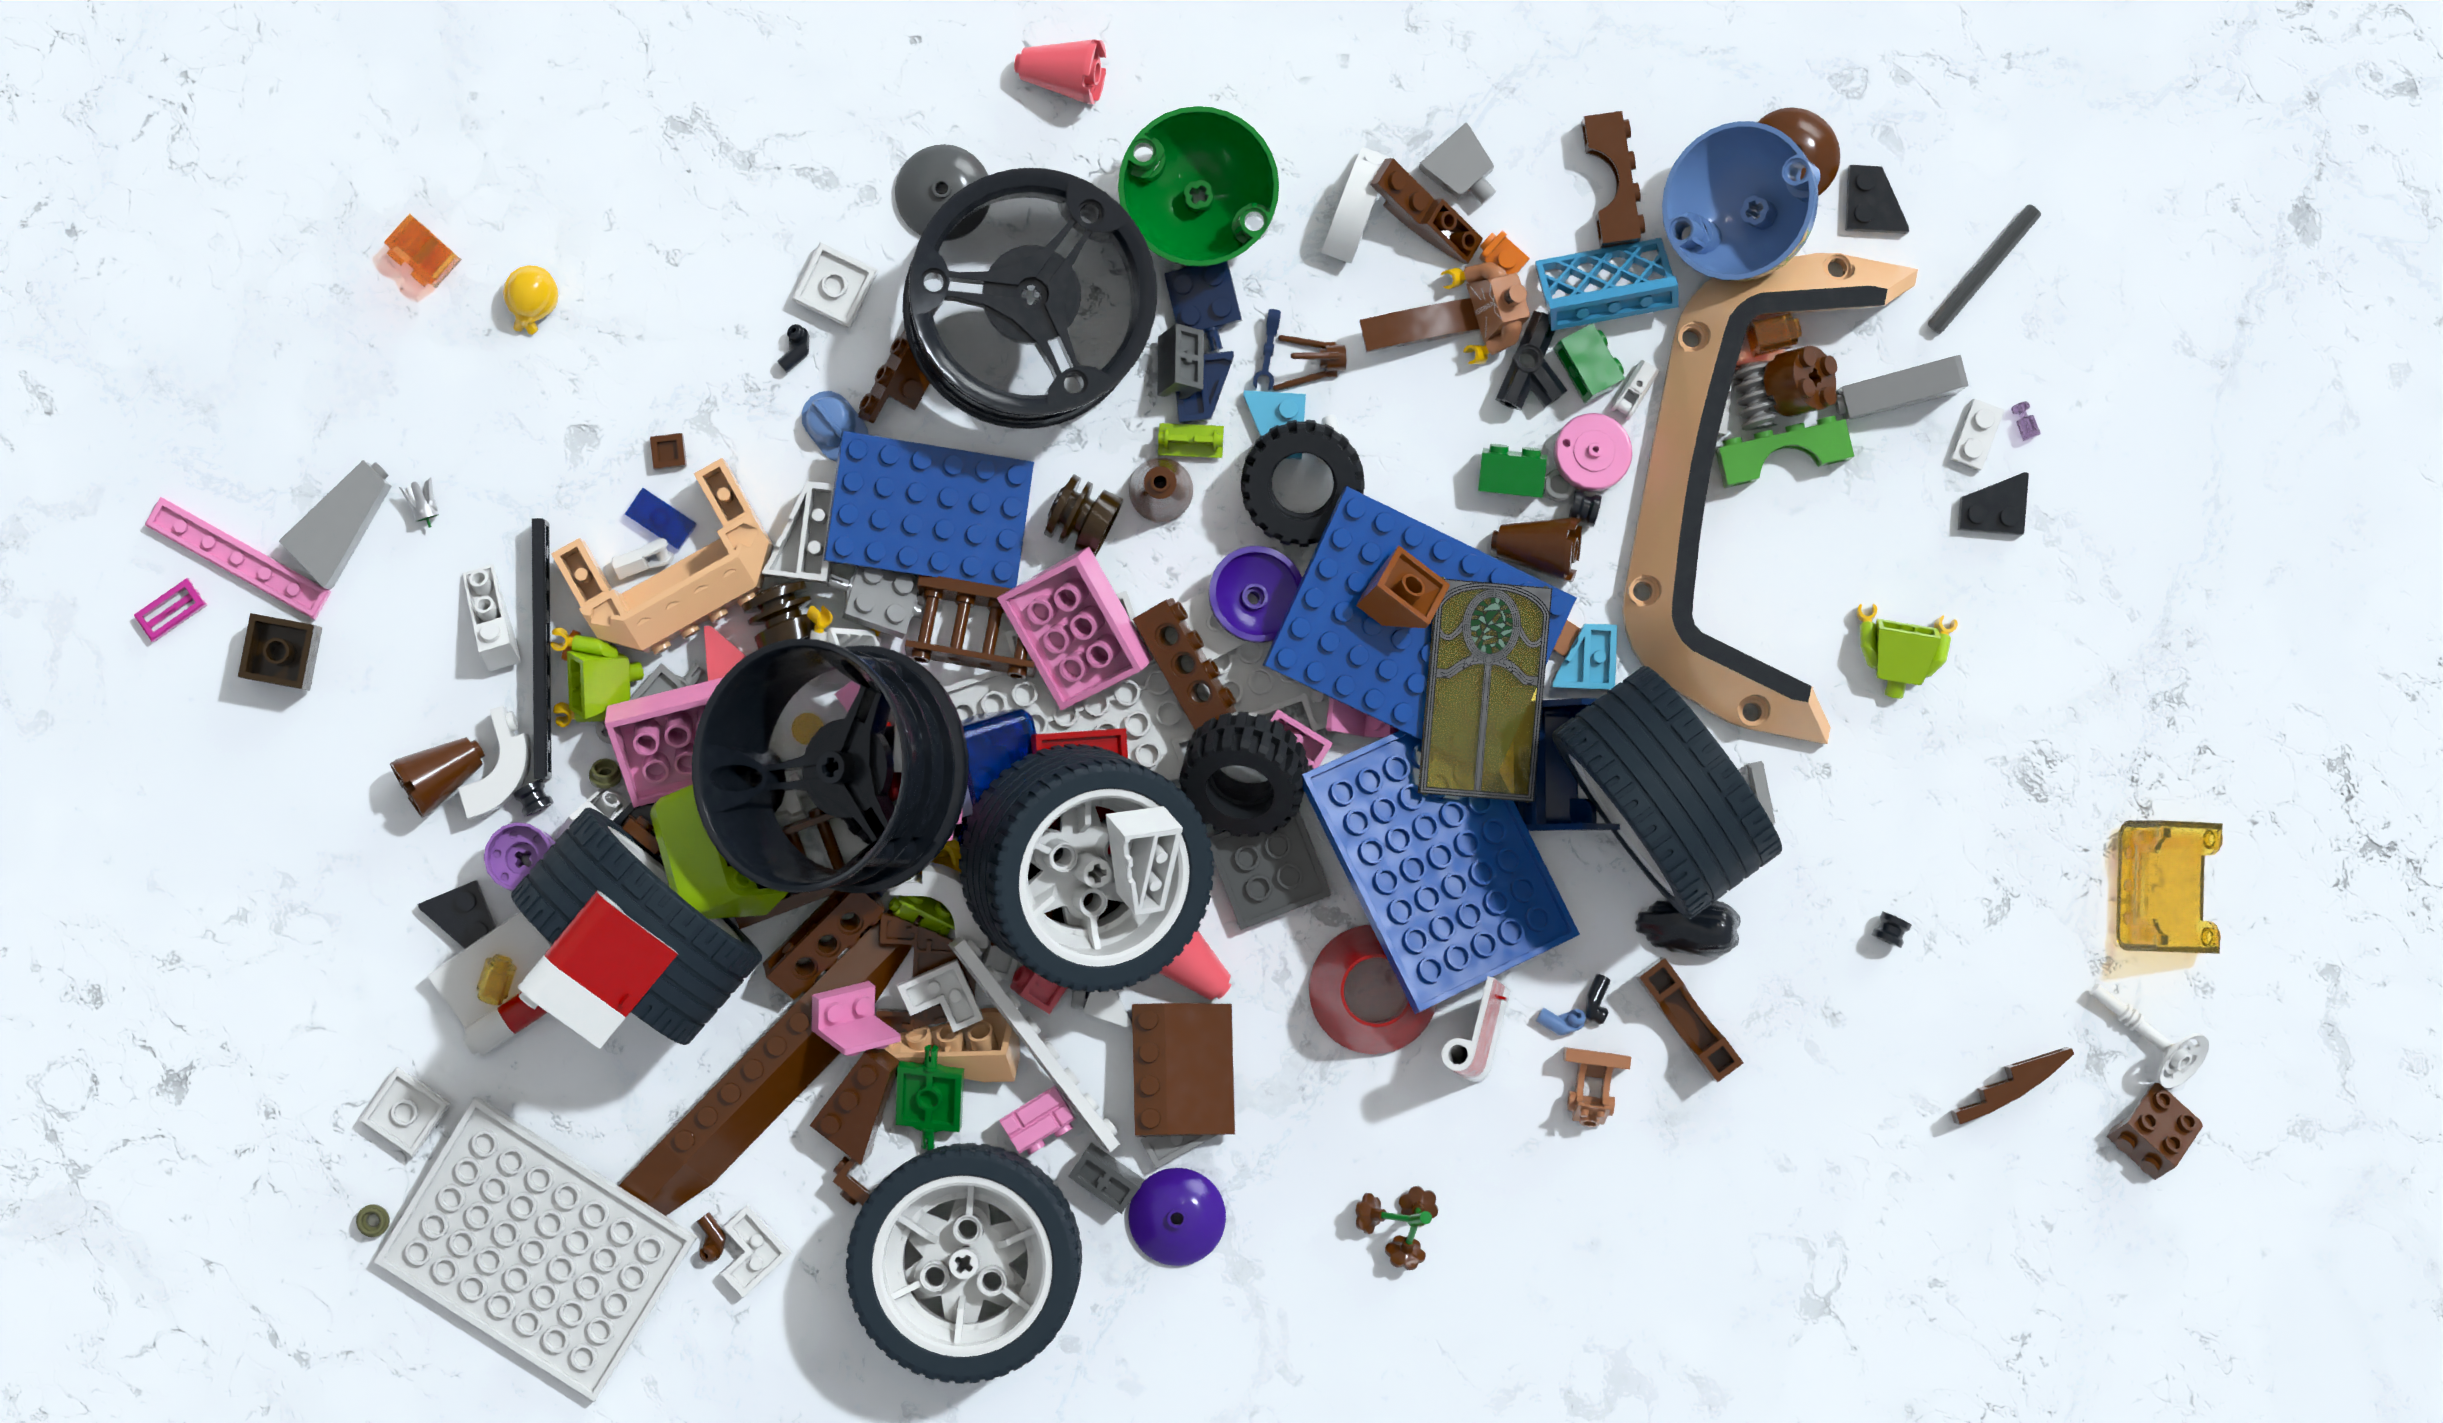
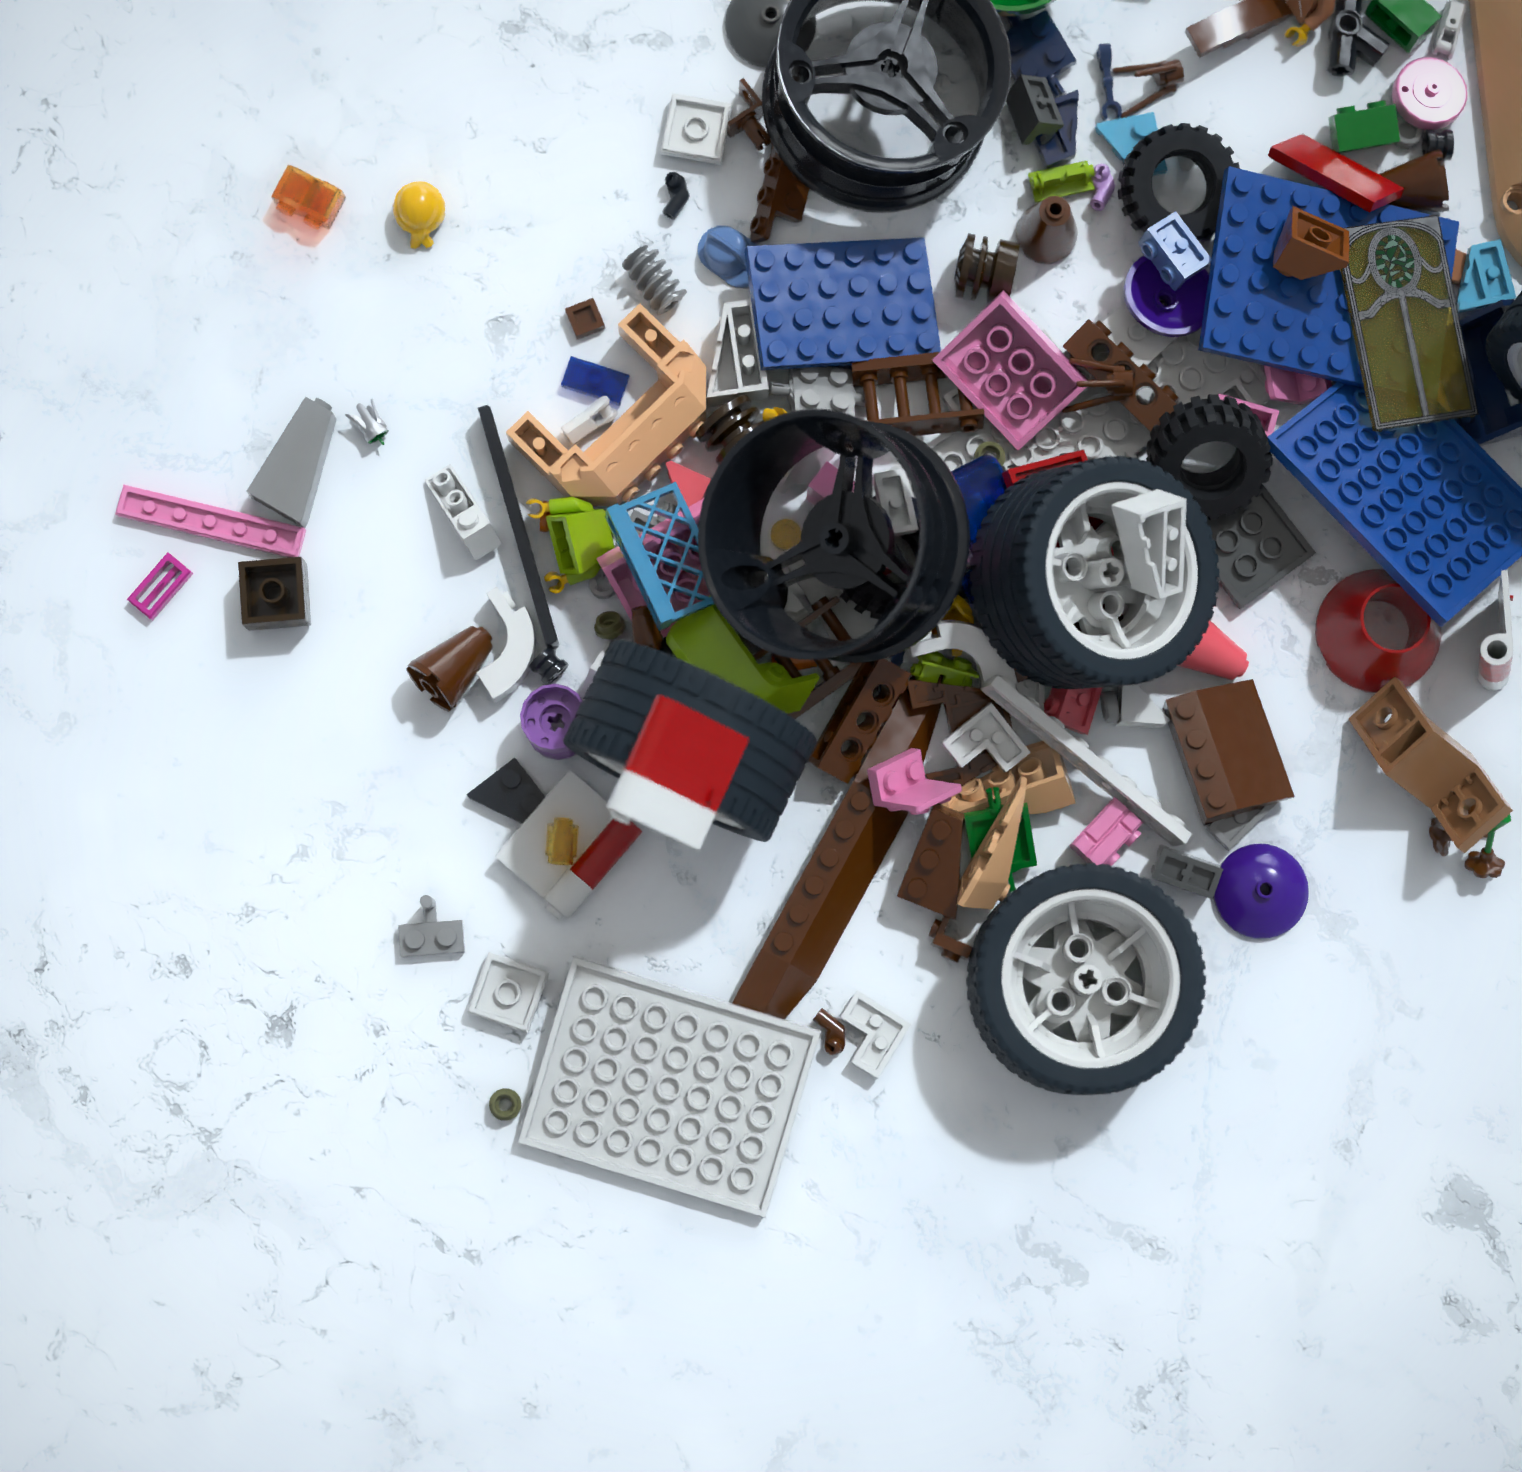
camera: 15 degrees left, 5 degrees down
(346, 1035) = (431, 936): none -> light grey plate
(634, 795) = (644, 628): none -> reddish brown cone
(641, 731) = (638, 558): none -> dark azure fence
(746, 432) = (653, 279): none -> light grey piece
(889, 293) = (749, 119): none -> reddish brown bracket
(908, 1124) = (989, 869): none -> light nougat wedge
(1038, 701) = (993, 448): none -> olive plate
(1174, 675) = (1118, 383): none -> reddish brown plant
(1232, 458) = (1103, 185): none -> lavender arm
(1270, 554) = (1174, 250): none -> medium blue bracket
(1372, 1142) = (1430, 764): none -> medium nougat bracket
(1464, 514) = (1335, 172): none -> red tile

